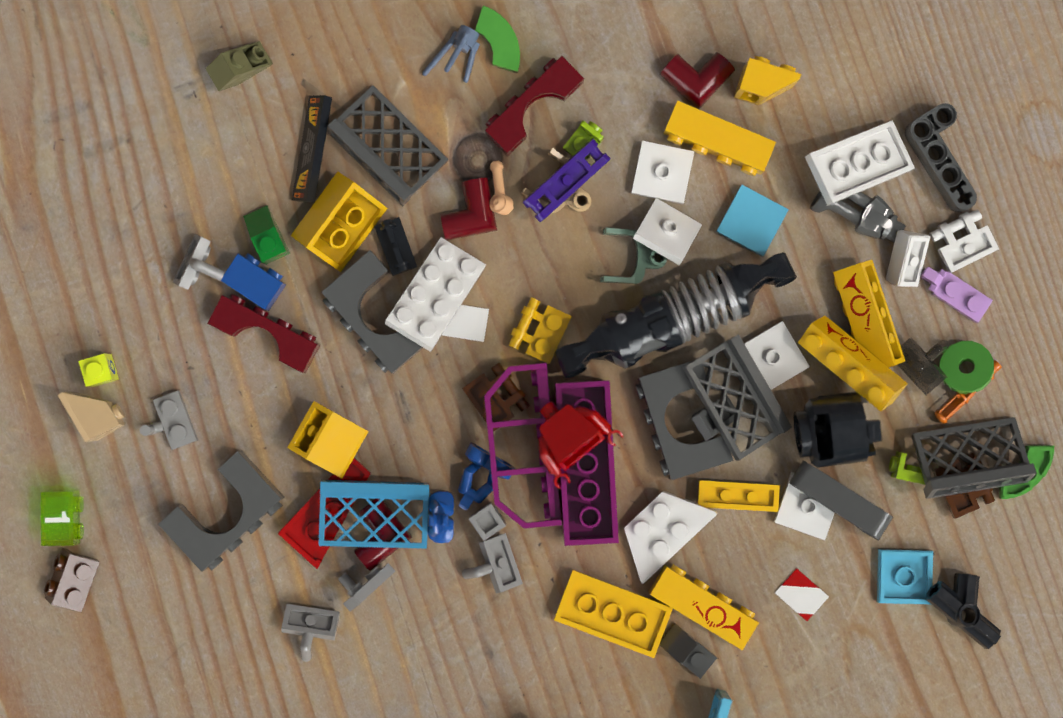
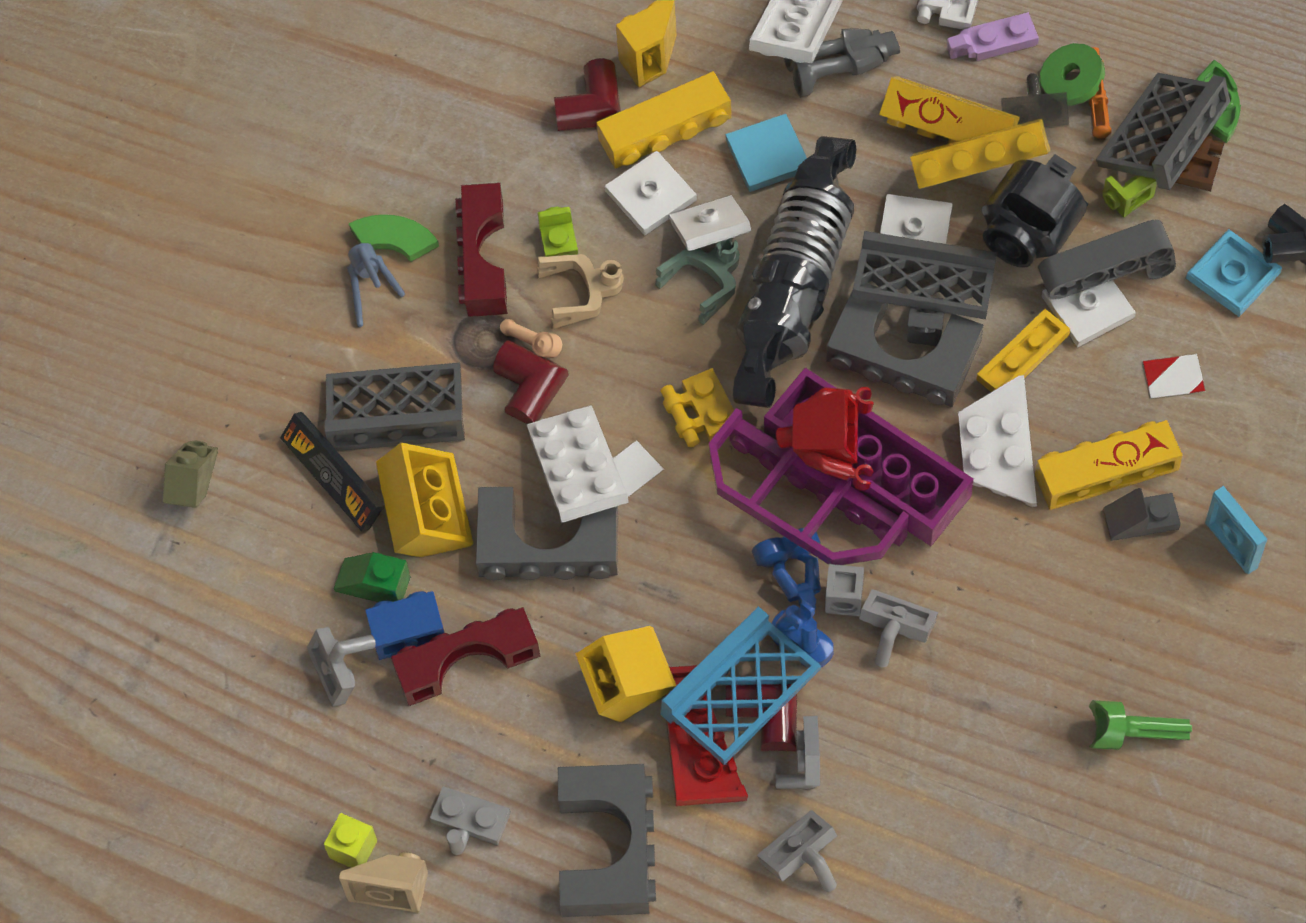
camera: 40 degrees left, 25 degrees down
(395, 246) = (495, 471): black hinge -> none
(500, 409) = (713, 508): reddish brown plate -> none
(566, 180) = (579, 268): dark purple plate -> none
(613, 613) = (1042, 553): yellow plate -> none
(907, 258) = (923, 50): white slope -> none

